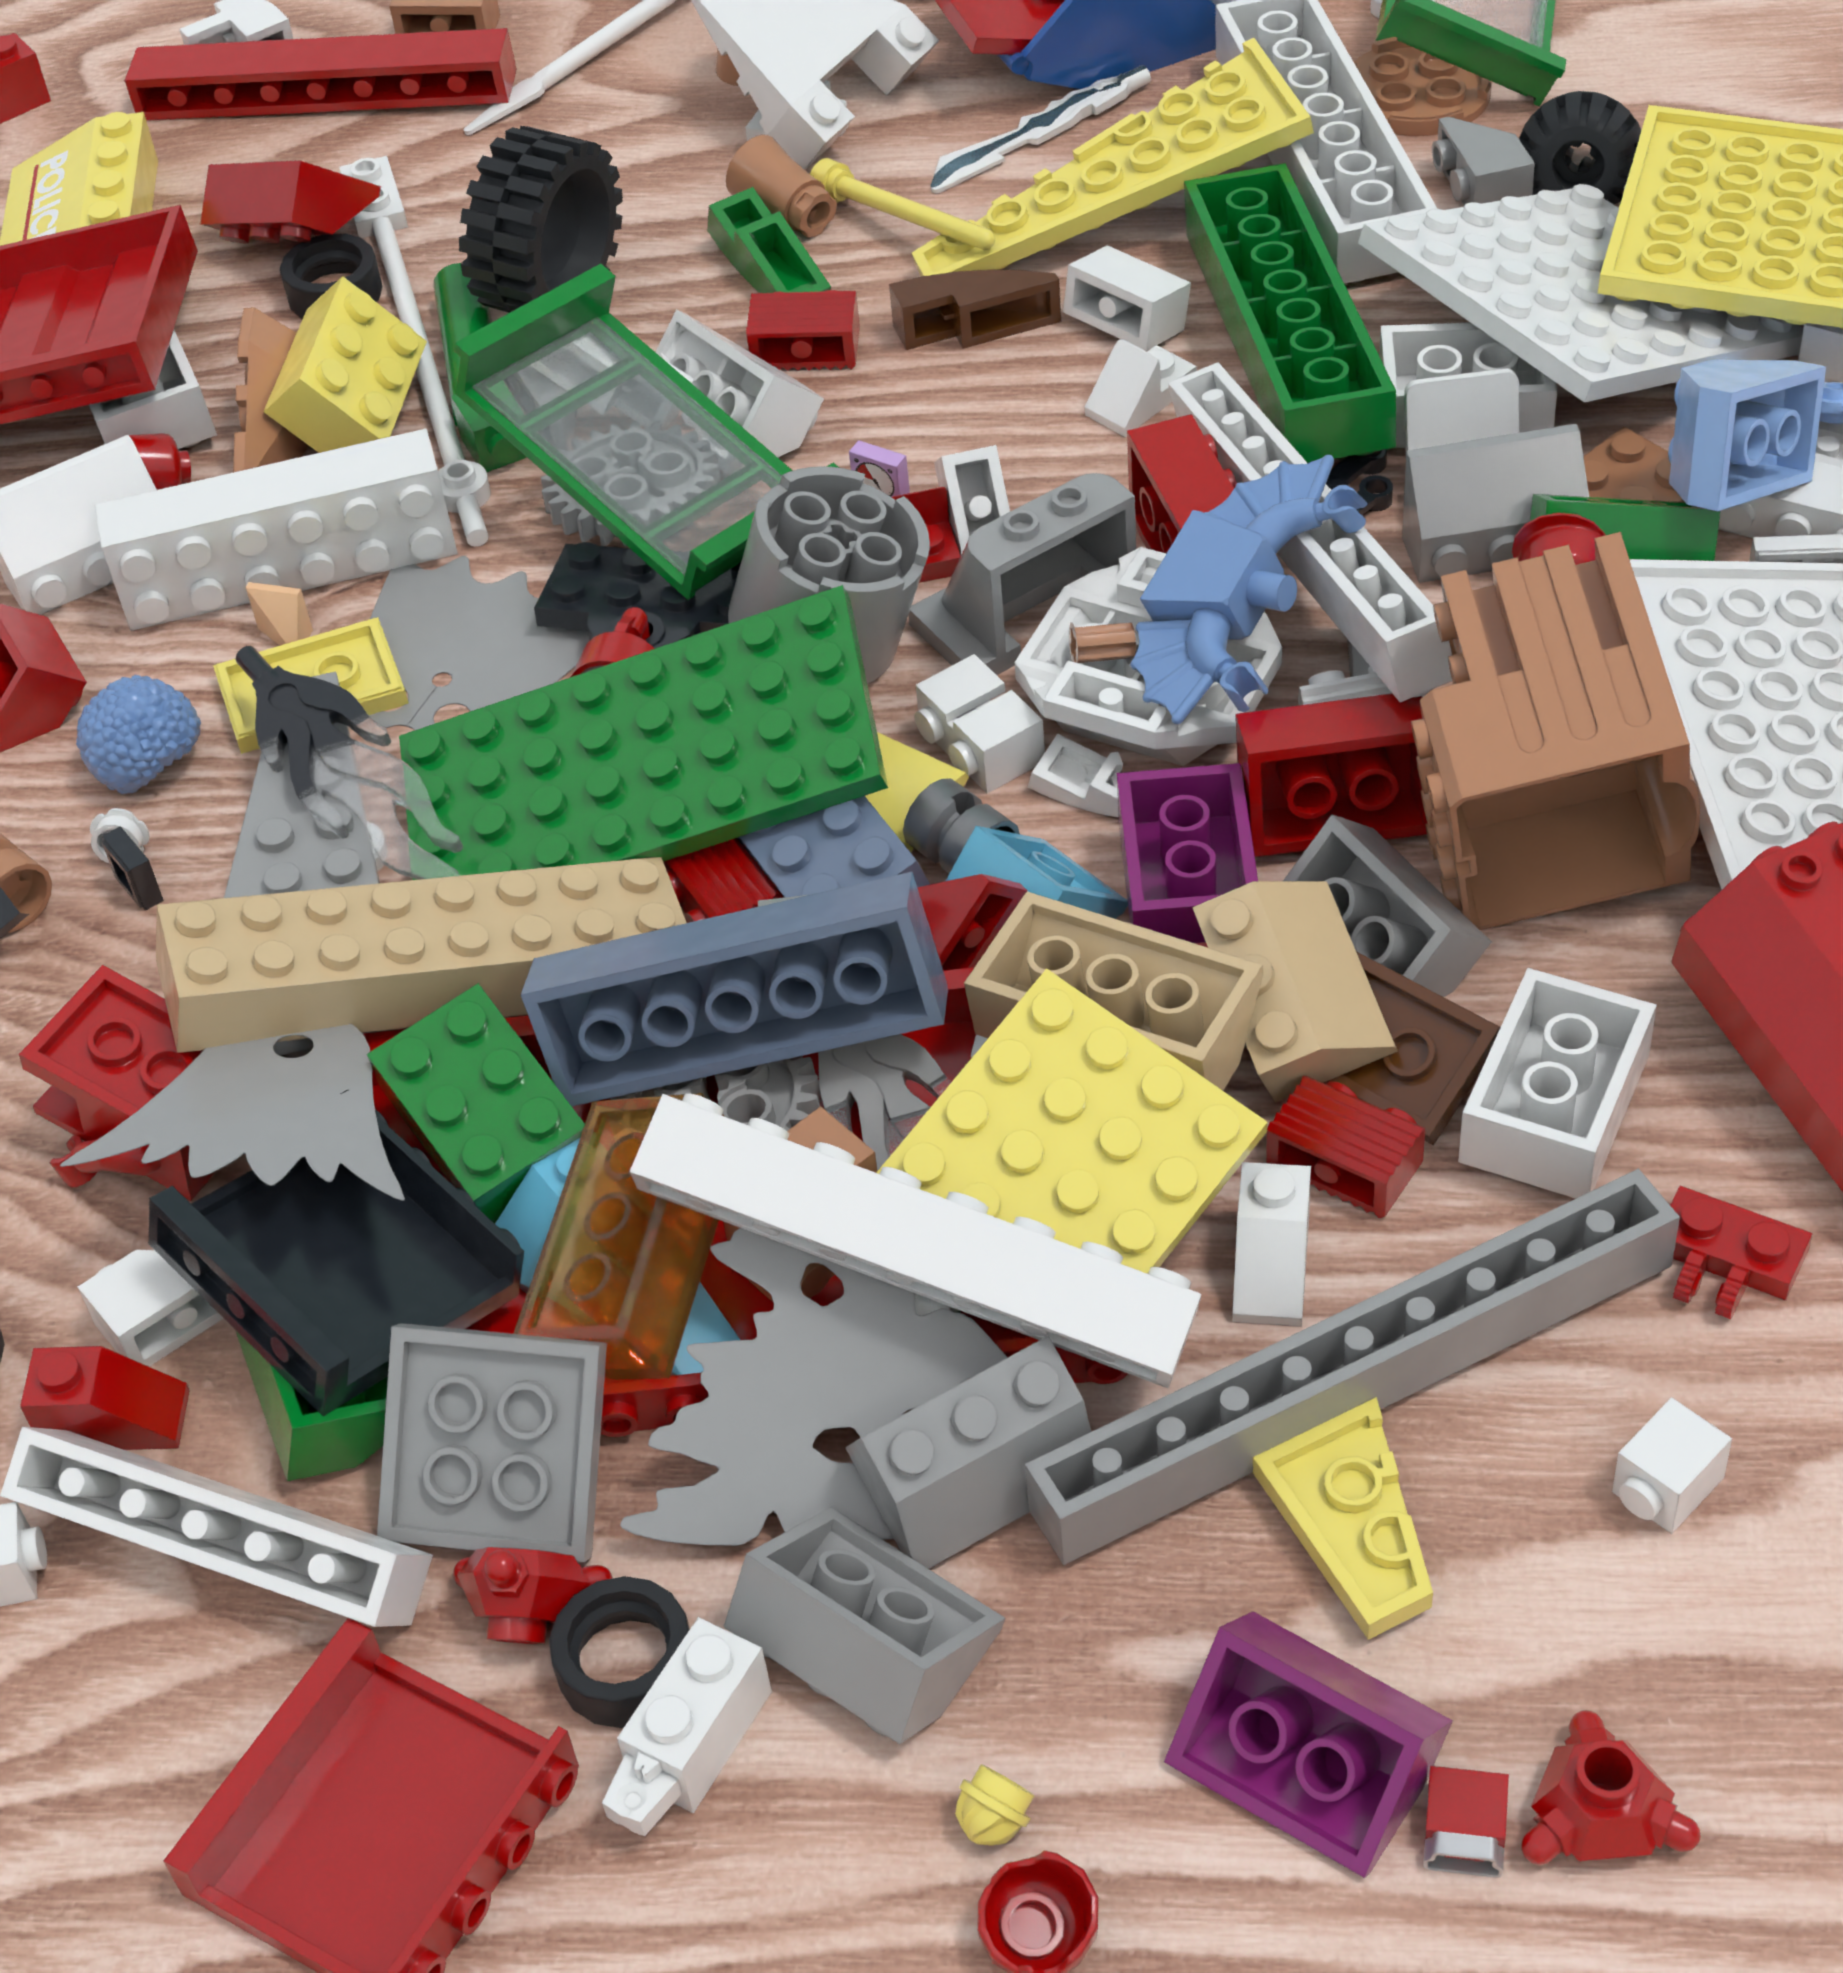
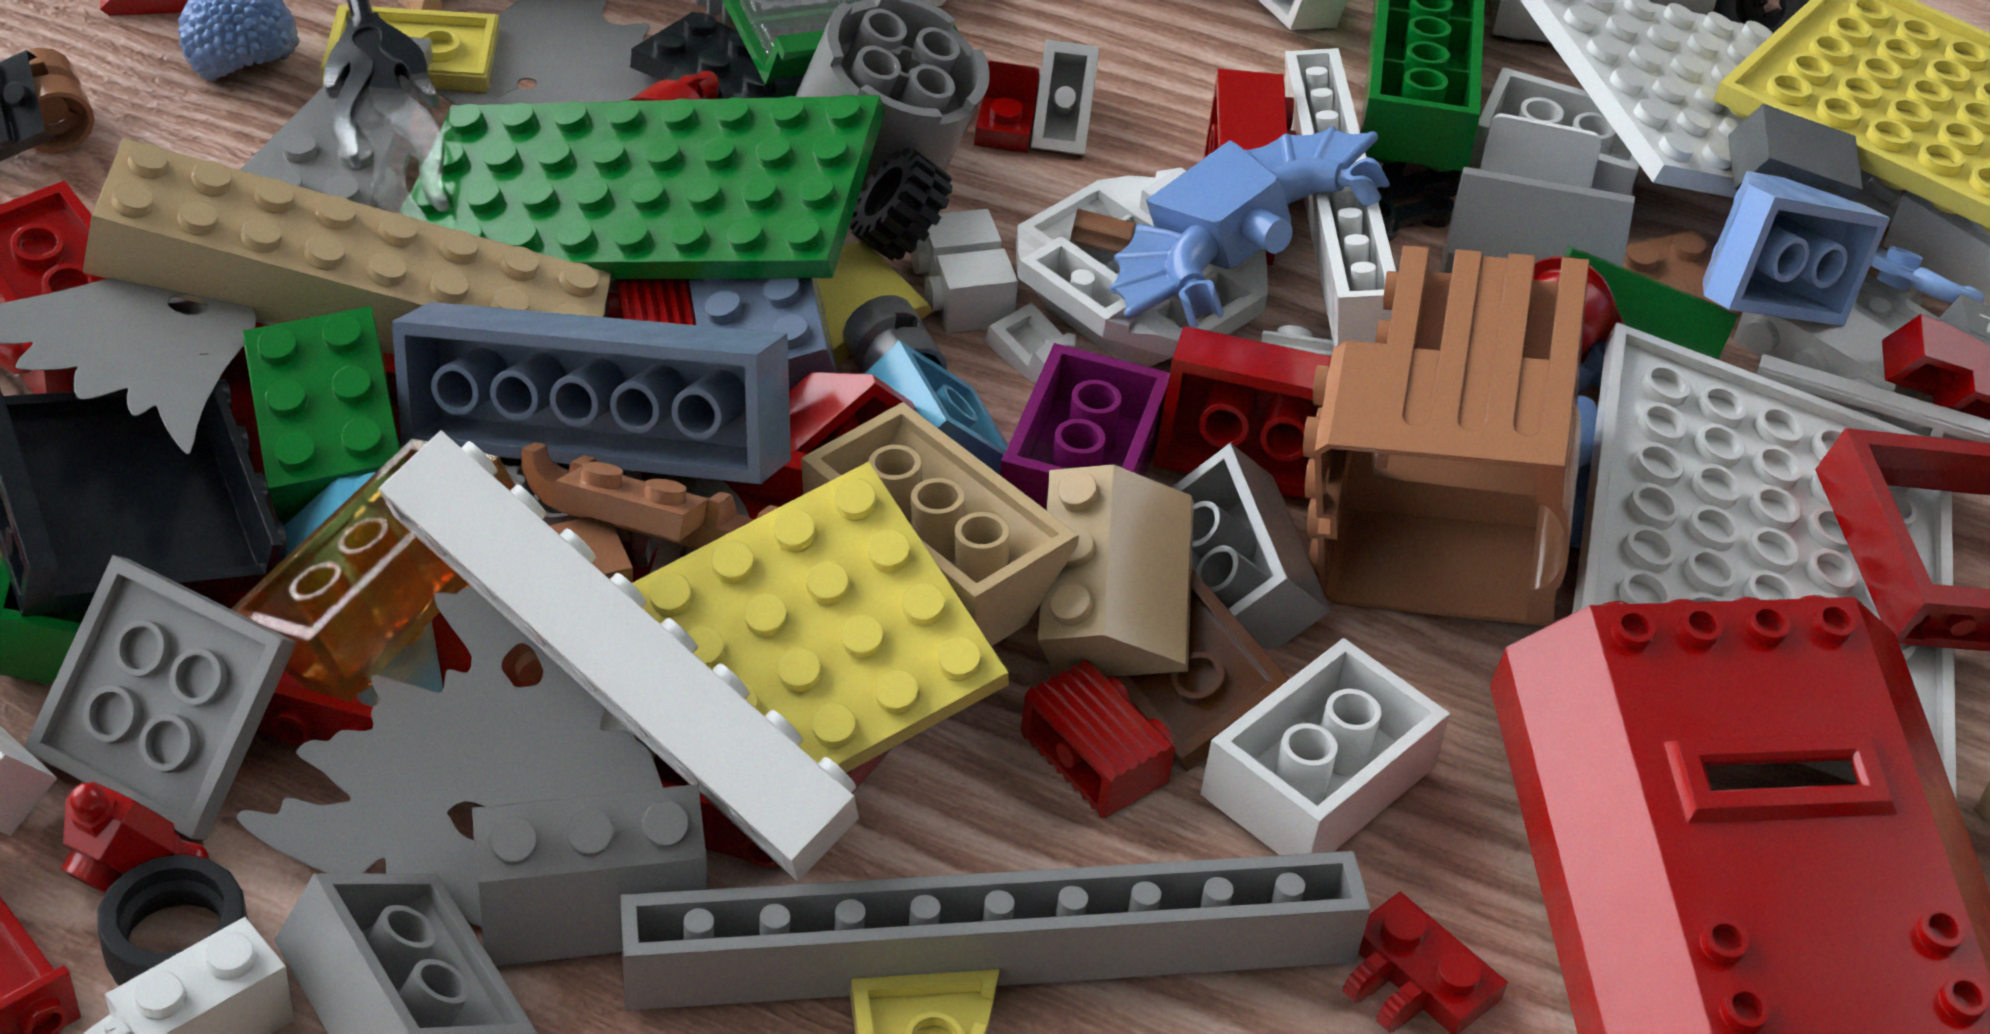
camera: 10 degrees right, 5 degrees down
(113, 819) = (173, 107): white plate -> none
(132, 868) = (165, 122): black tile -> none
(836, 1088) = (645, 507): none -> nougat plate
(882, 468) = (995, 38): lavender tile -> none
(901, 678) = (901, 204): none -> black tyre
(1023, 563) = (1070, 142): light grey windscreen -> none
(1134, 386) = (1260, 44): white slope -> none
(1271, 1244) = (979, 796): white slope -> none
(1703, 326) = (1797, 150): none -> dark grey brick

